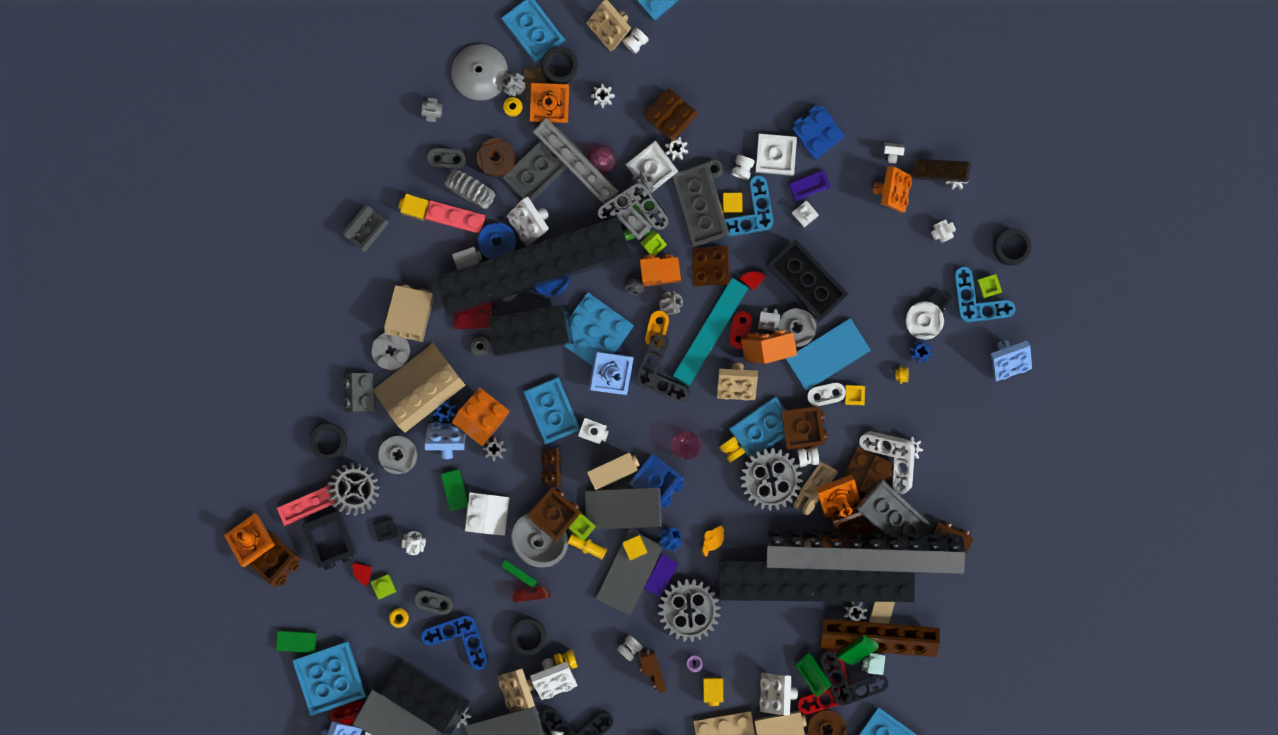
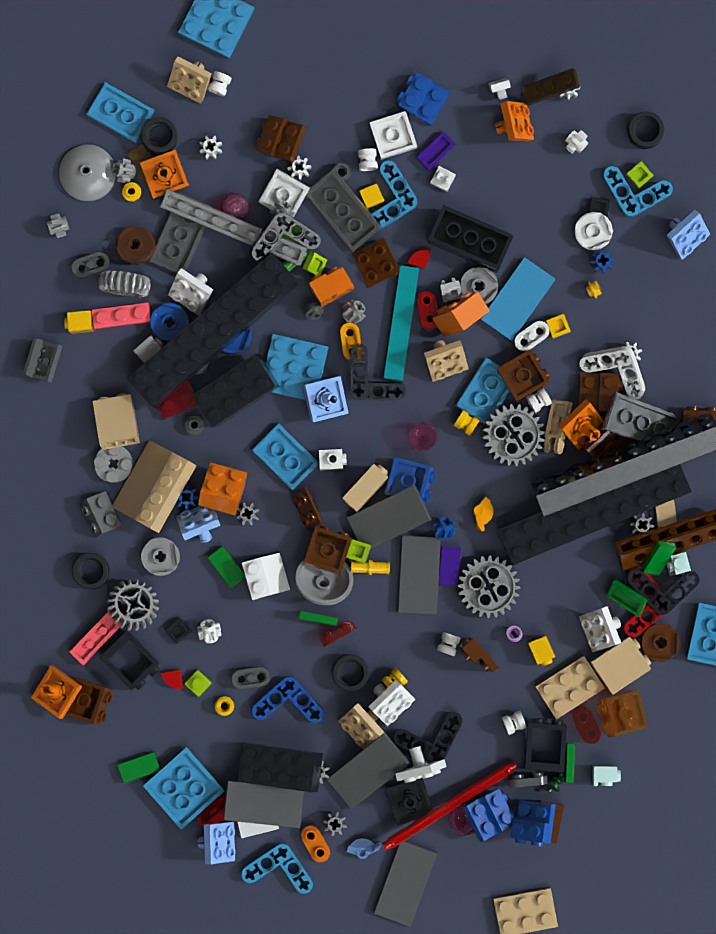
camera: 20 degrees left, 0 degrees up
(634, 547) = (414, 550): yellow tile -> none

